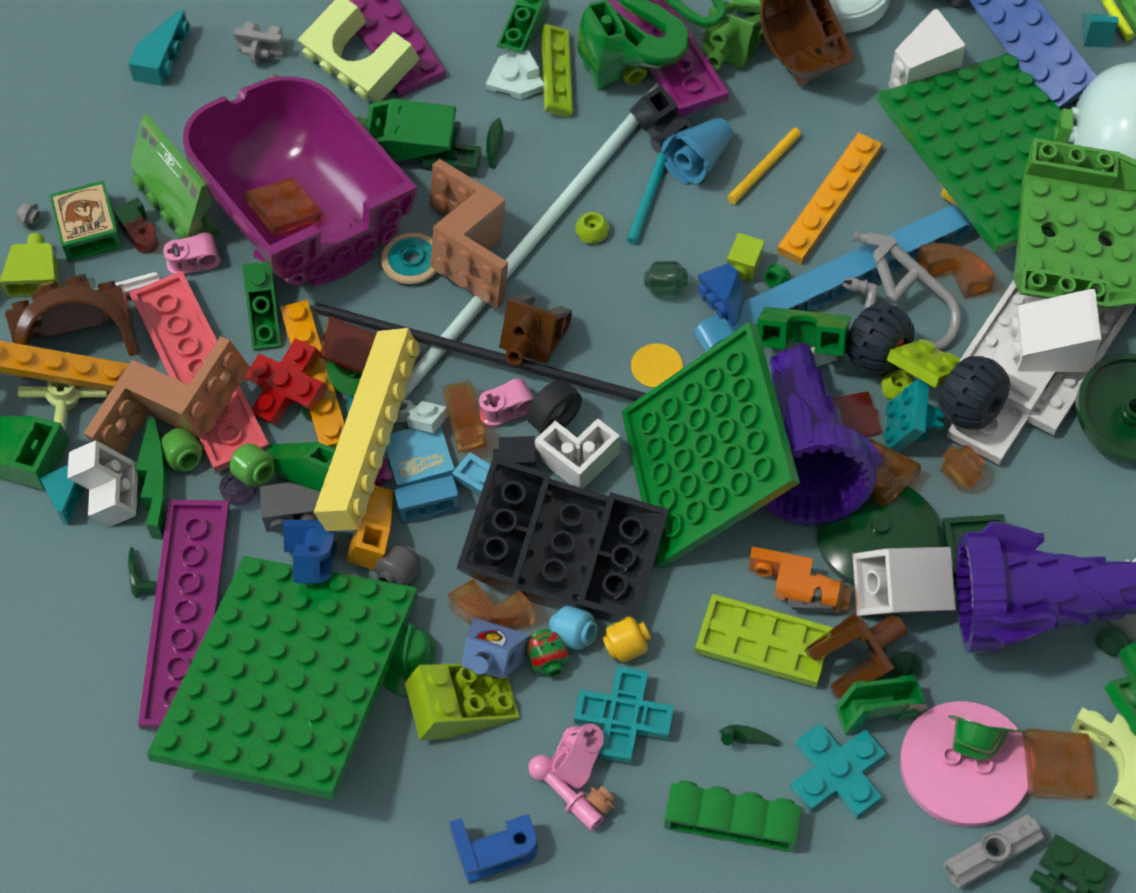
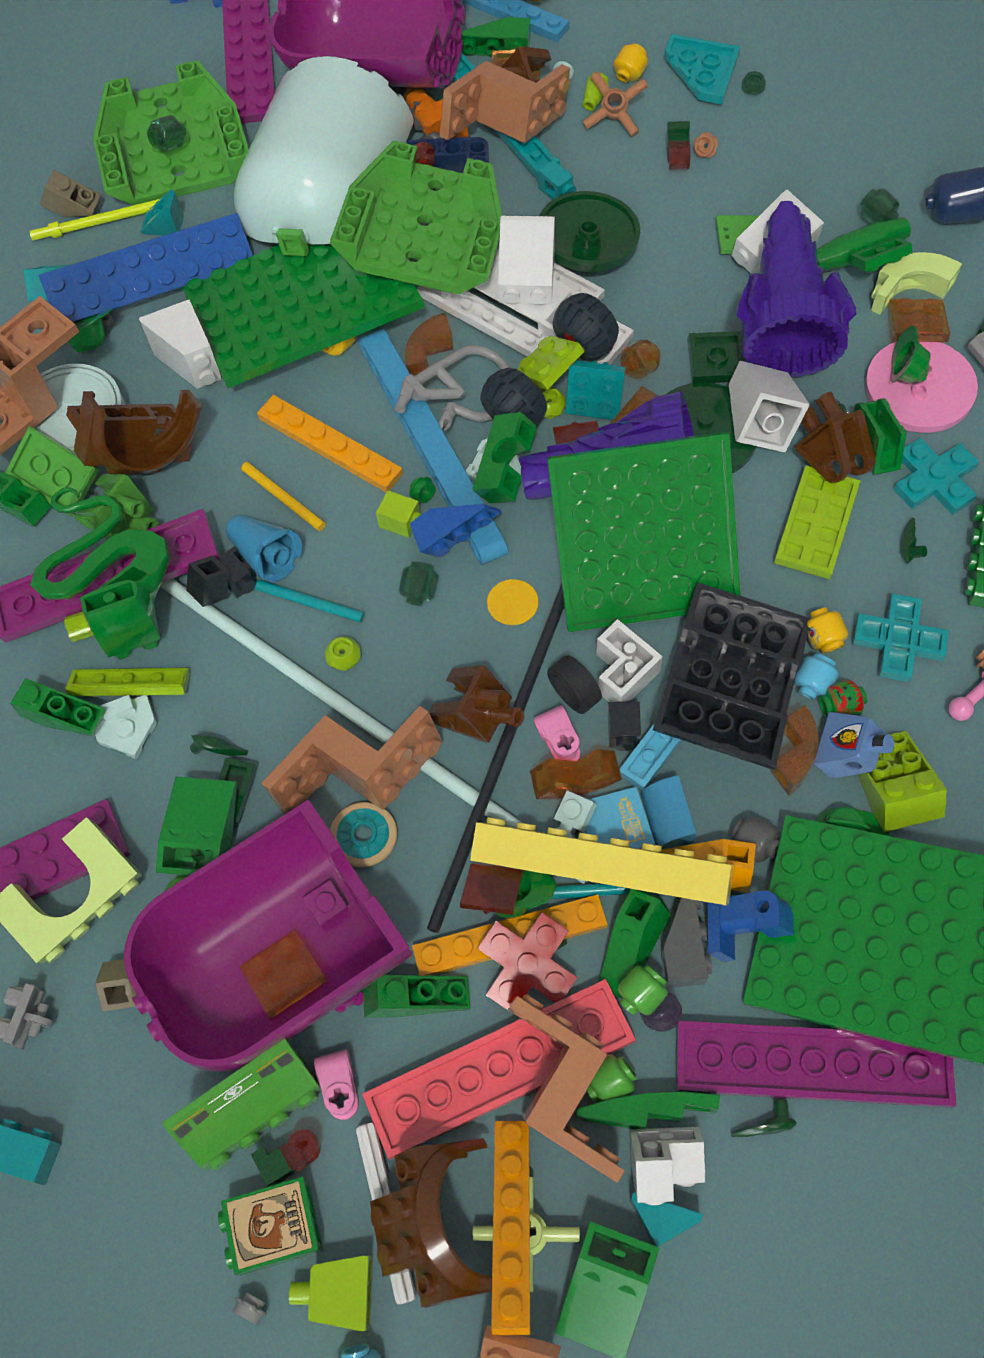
camera: 85 degrees left, 5 degrees up
(577, 754) = (947, 672): bright pink piece -> none
(797, 584) = (763, 487): orange plate -> none

